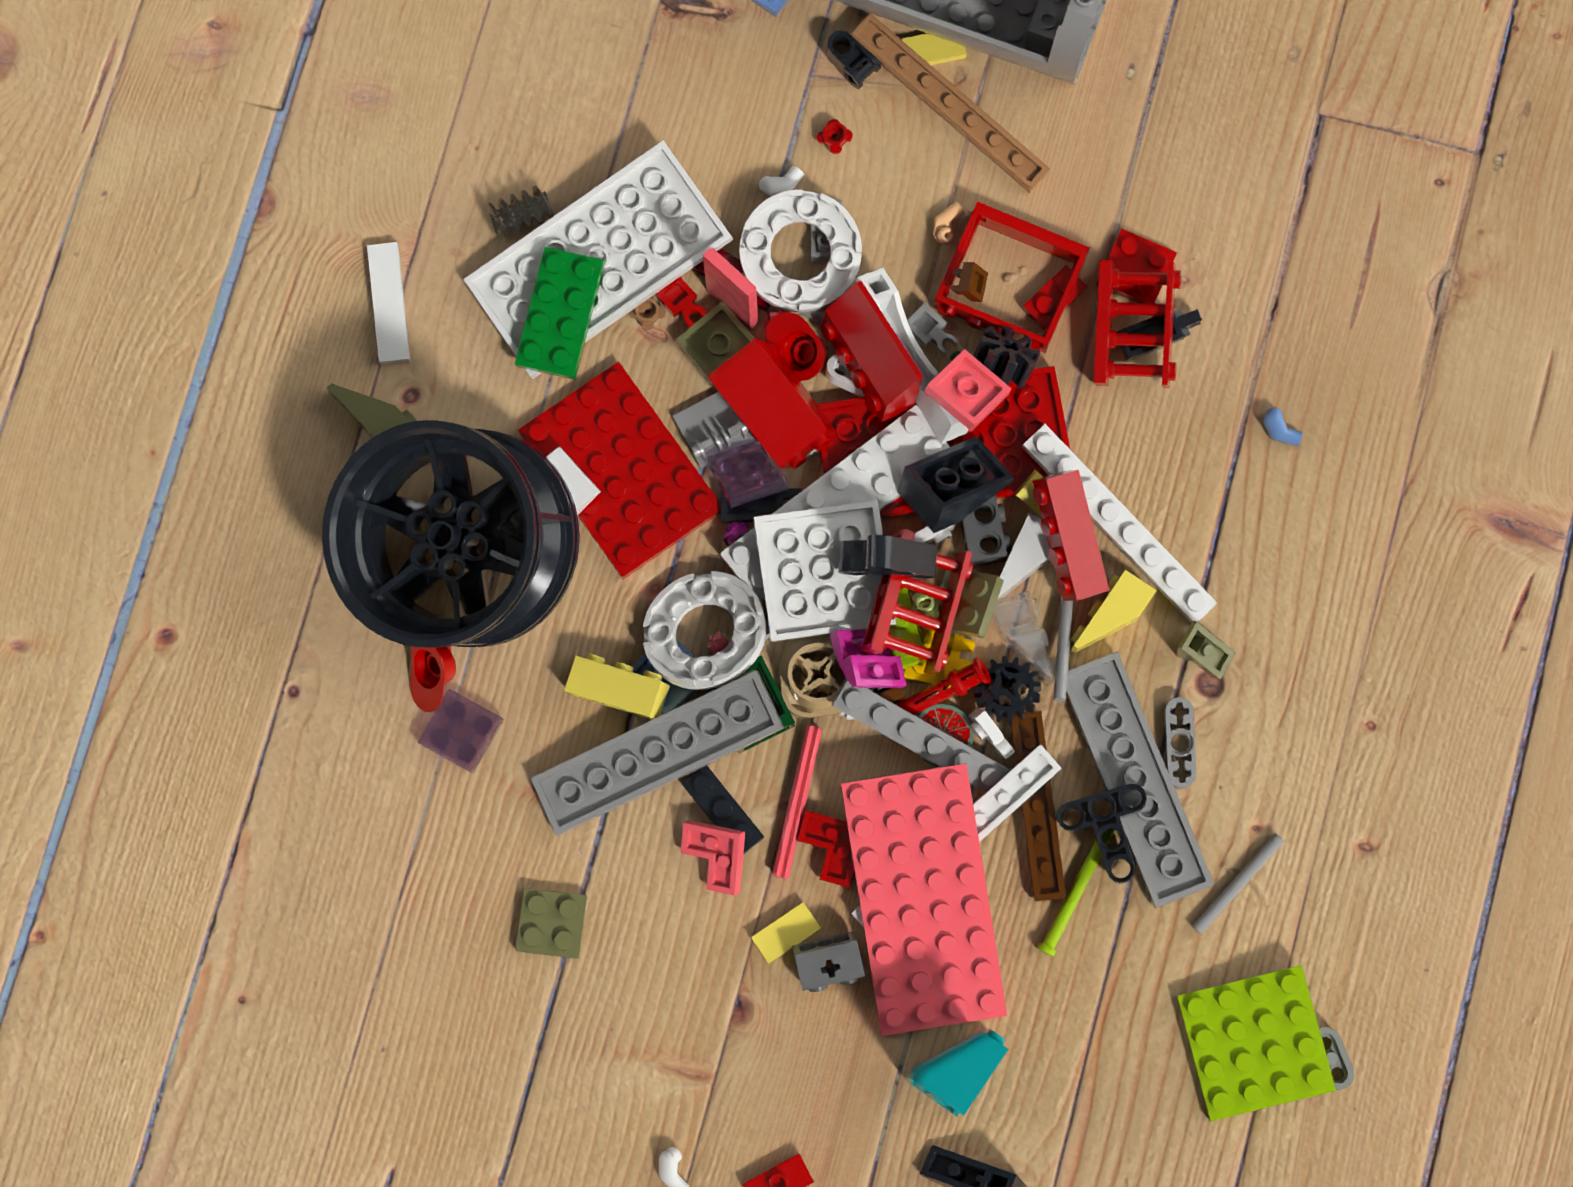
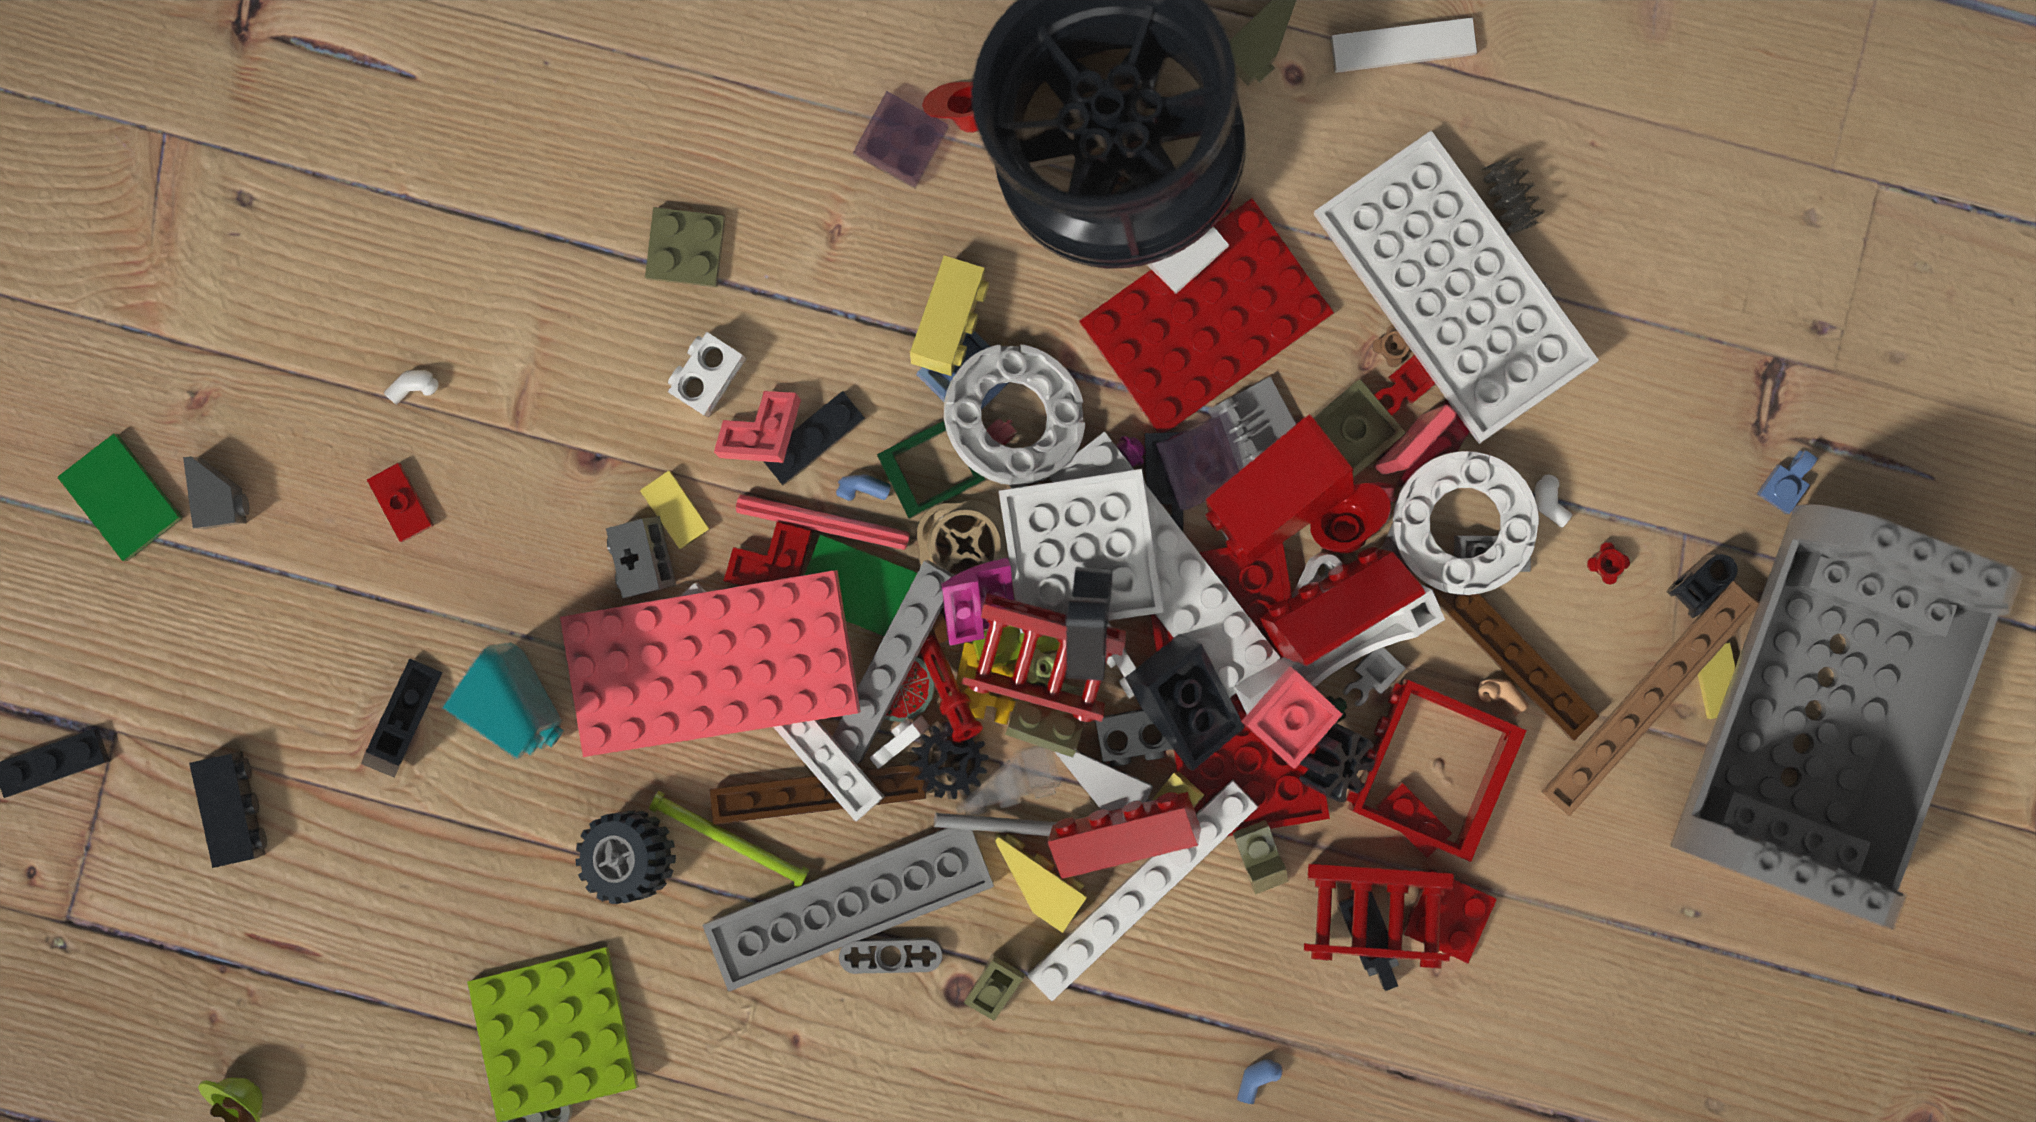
camera: 90 degrees right, 10 degrees up
(560, 313) = (1389, 243): green plate -> none
(657, 753) = (872, 363): light grey plate -> none
(669, 896) = (714, 379): none -> white brick
(763, 766) = (863, 483): none -> medium blue arm
(854, 756) = (868, 585): none -> green tile
(919, 209) = (1518, 661): none -> reddish brown plate
(971, 282) = (1427, 723): reddish brown tile -> none
(1088, 423) = (1260, 857): none -> olive slope
(1095, 973) = (625, 856): none -> black wheel
(1109, 822) = (793, 868): black beam -> none
(1238, 884) = (730, 1016): light grey bar -> none

